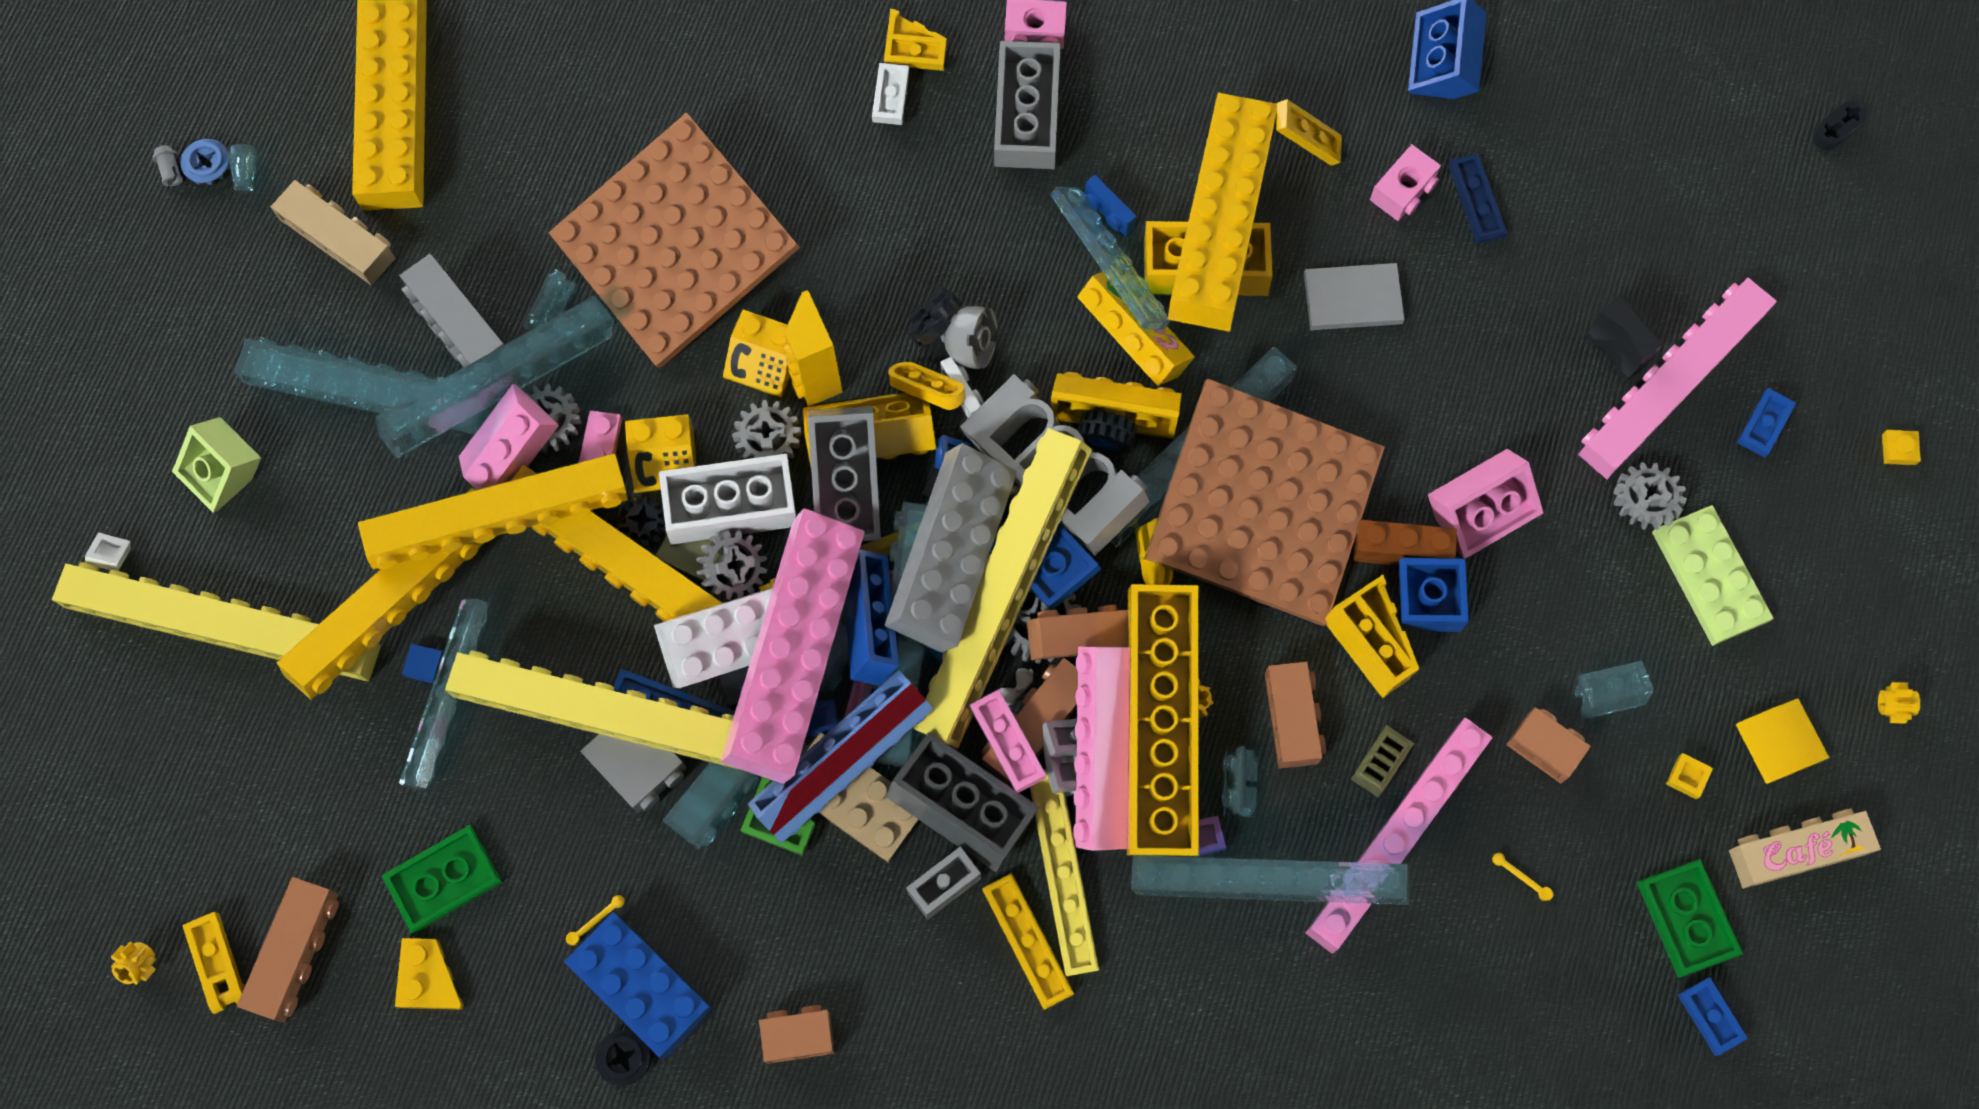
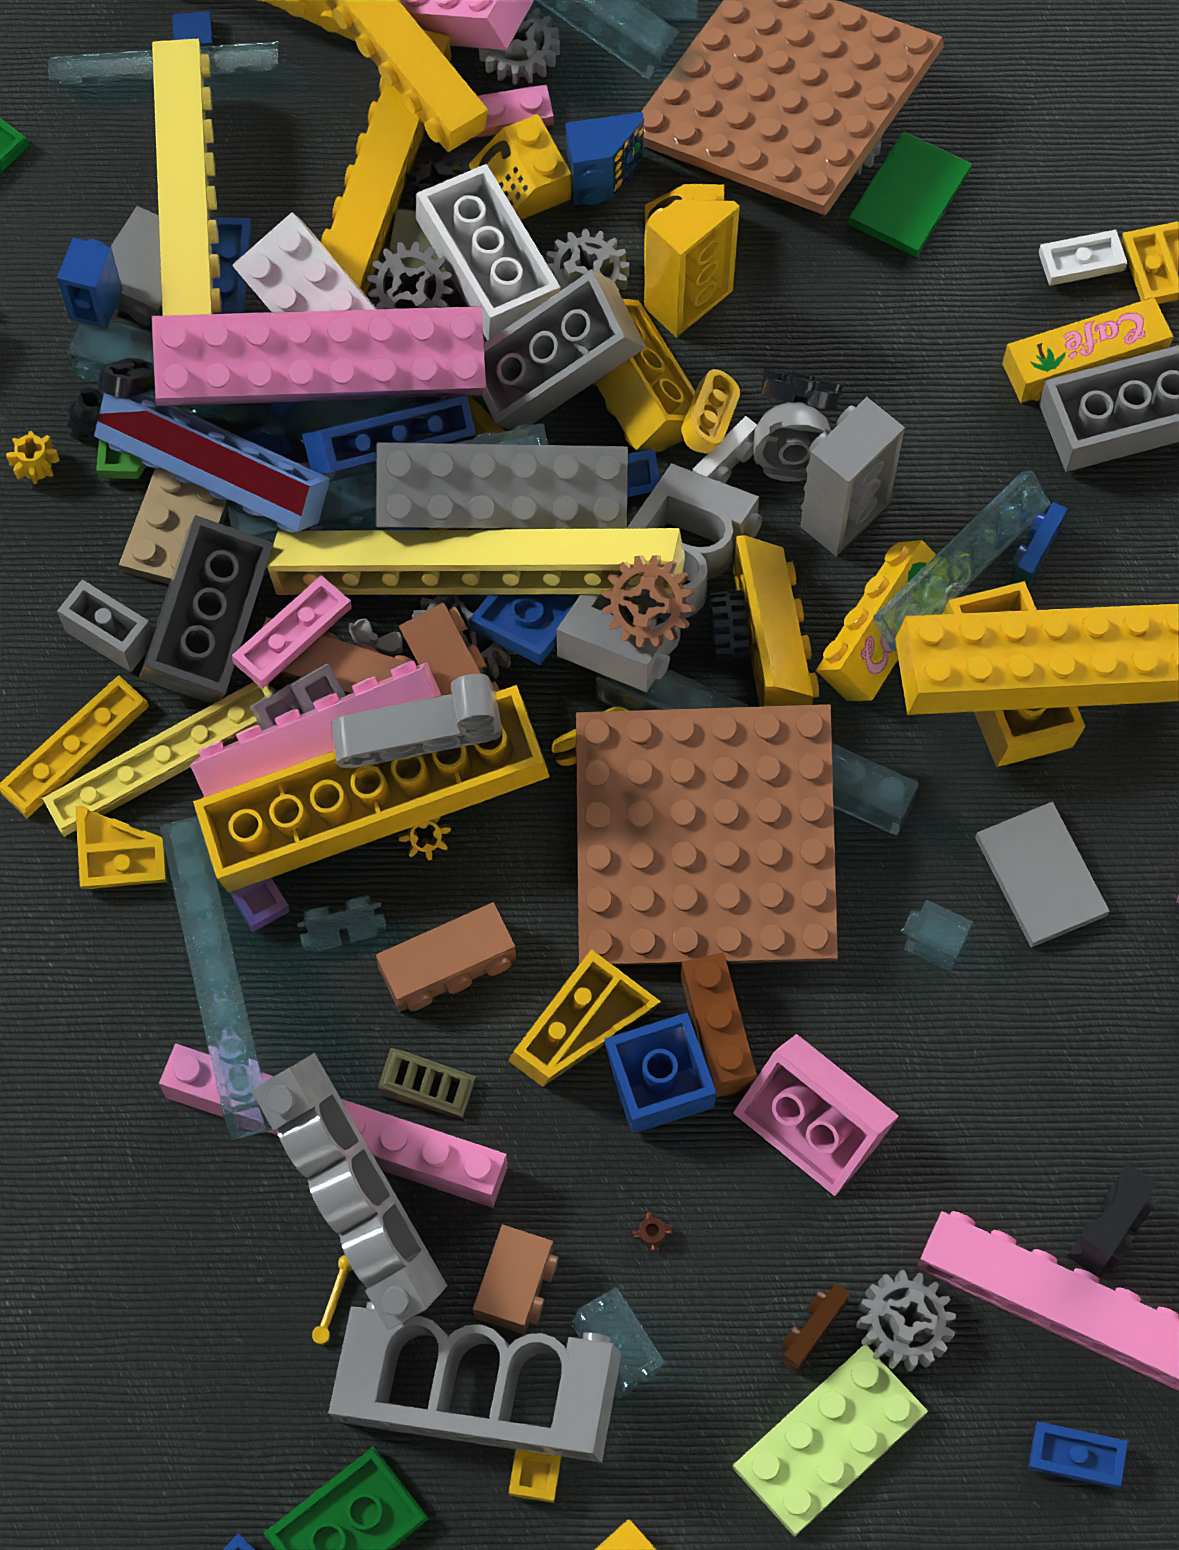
camera: 70 degrees right, 5 degrees down
(651, 802) = (90, 282): none -> blue brick
(679, 388) = (603, 155): none -> blue slope
(747, 799) = (127, 378): none -> black beam
(755, 845) = (84, 412): none -> black axle
(765, 892) = (29, 447): none -> yellow gear
(790, 189) = (909, 194): none -> green tile
(968, 118) = (1085, 345): none -> yellow brick
(1032, 301) = (850, 475): none -> light grey brick
(1088, 474) = (645, 617): none -> nougat gear
(1132, 931) = (116, 853): none -> yellow wing
(1145, 663) = (419, 726): none -> light grey beam
(1380, 378) = (936, 934): none -> clear light blue brick
(1474, 829) = (351, 1191): none -> light grey fence
(1535, 641) = (652, 1231): none -> copper piece
(1643, 563) = (824, 1310): none -> reddish brown plate
(1666, 721) = (581, 1407): none -> light grey fence

